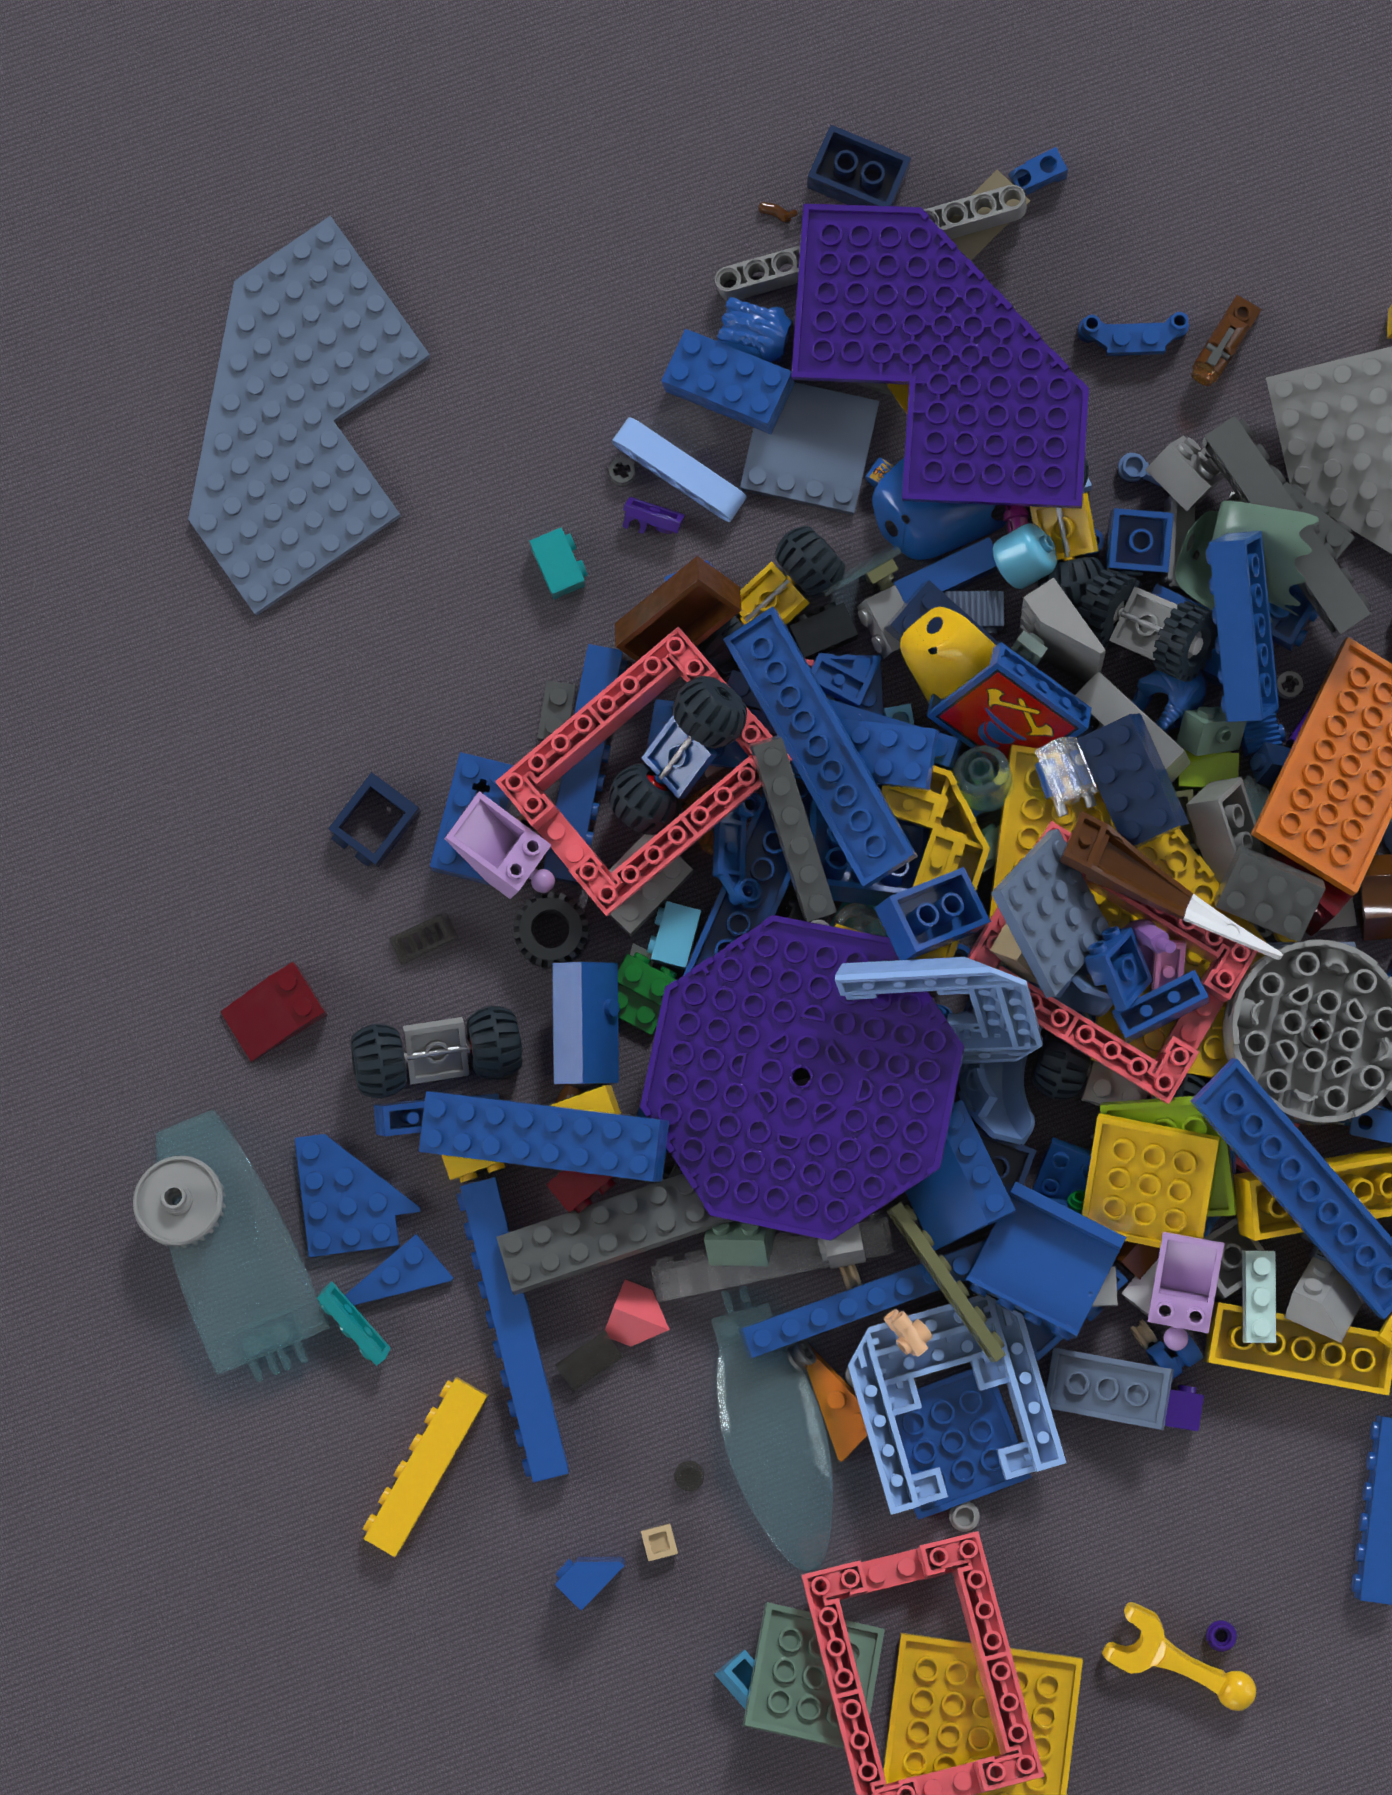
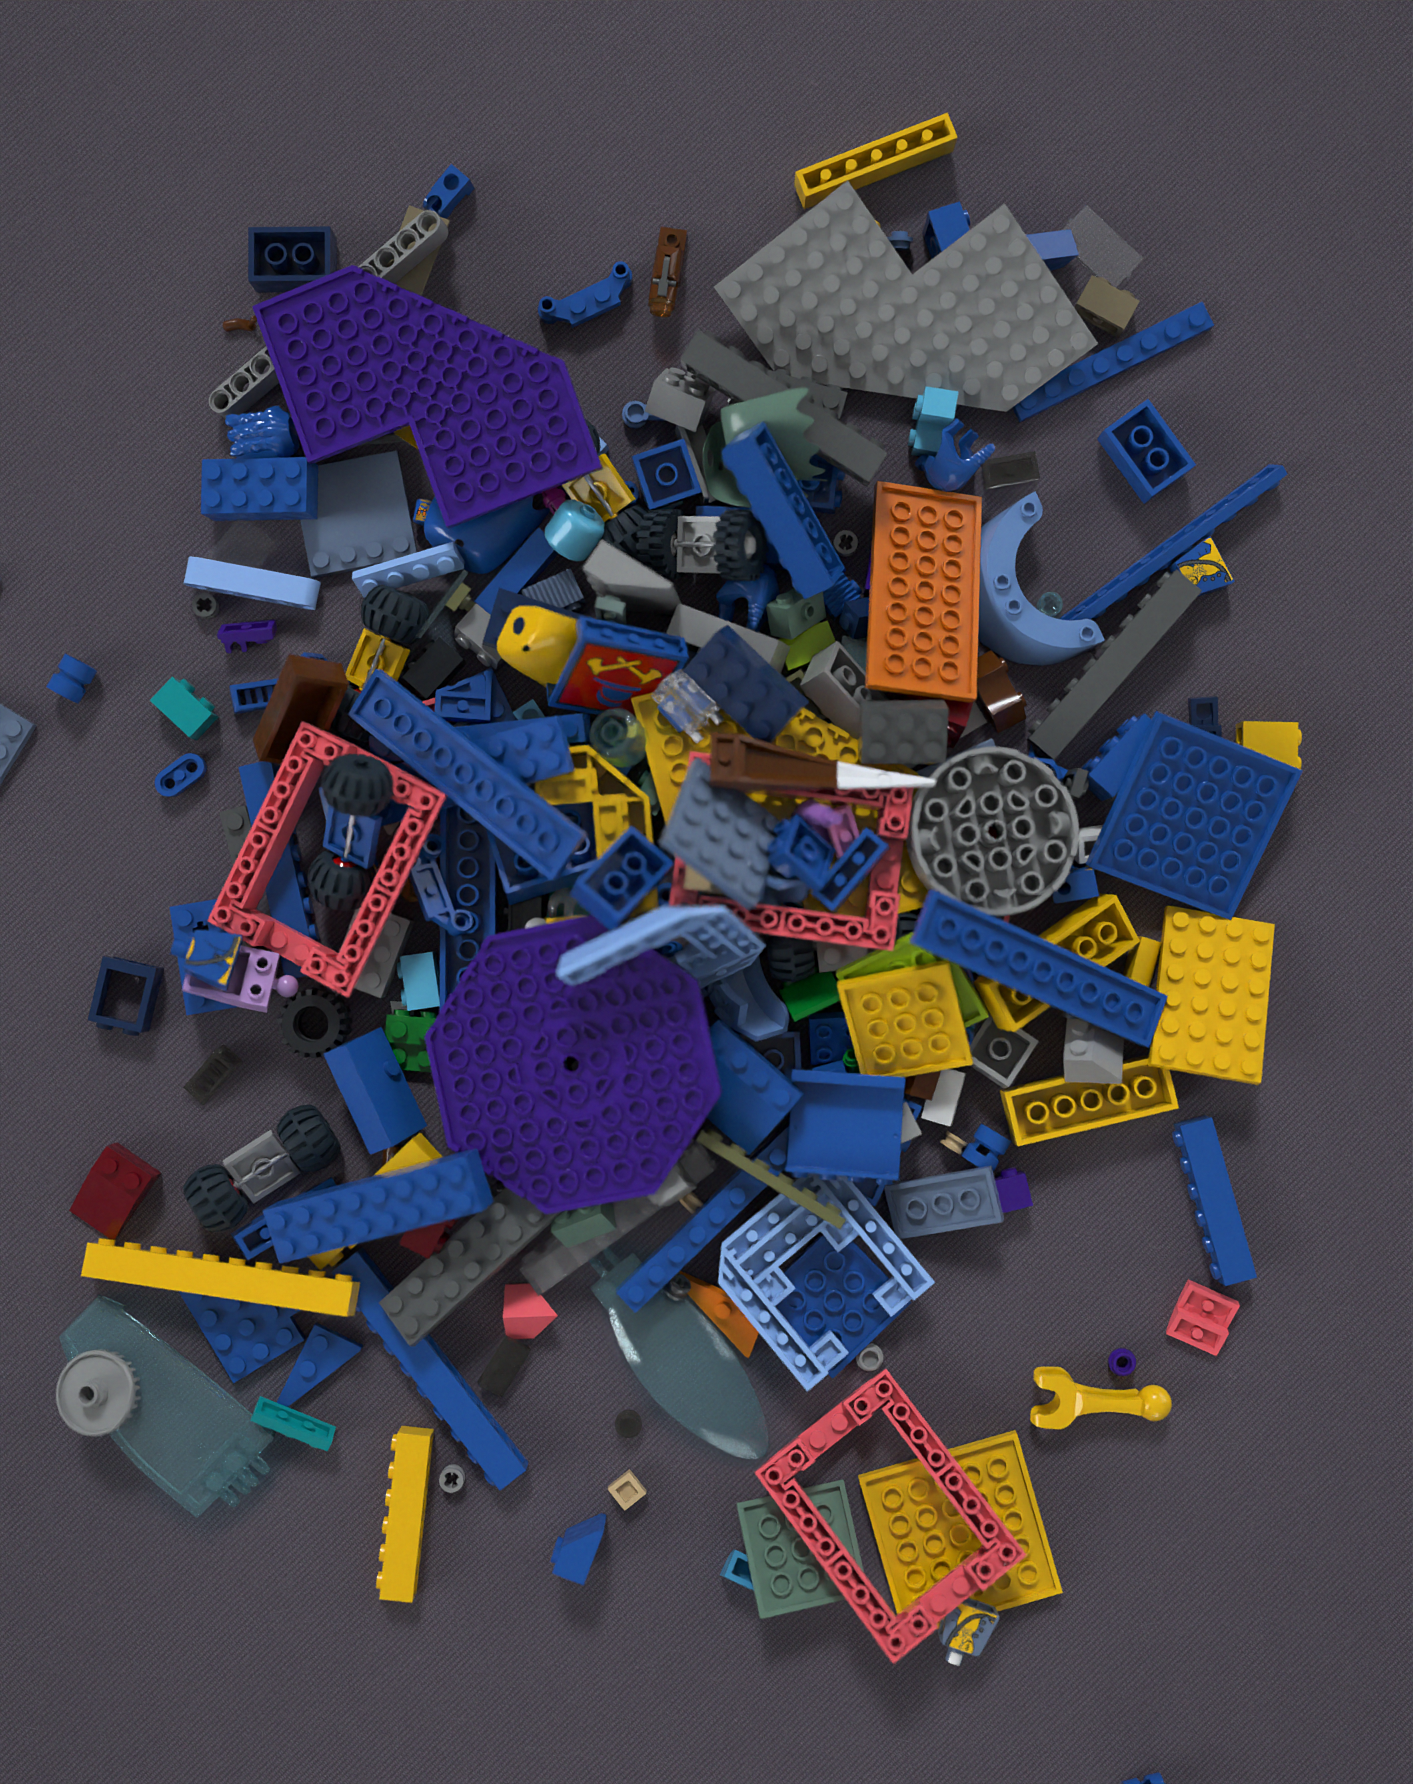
camera: 20 degrees left, 5 degrees up
(348, 1144) = (220, 1278): none -> yellow brick
(461, 484) = (71, 678): none -> blue wheel
(478, 1447) = (453, 1468): none -> light grey bush
(487, 816) = (209, 956): none -> blue torso
(523, 624) = (181, 774): none -> blue plate
(610, 576) = (246, 687): none -> blue slope
(792, 828) = (471, 855): dark grey brick -> none
(842, 523) = (410, 568): none -> light blue plate
(911, 1334) = (761, 1237): light nougat plate -> none
(1062, 1118) = (809, 994): none -> green slope
(1186, 1283) = (971, 1095): lavender slope -> none
(1259, 1296) = (1036, 1074): light aqua plate -> none
(1323, 1626) = (1202, 1317): none -> coral slope

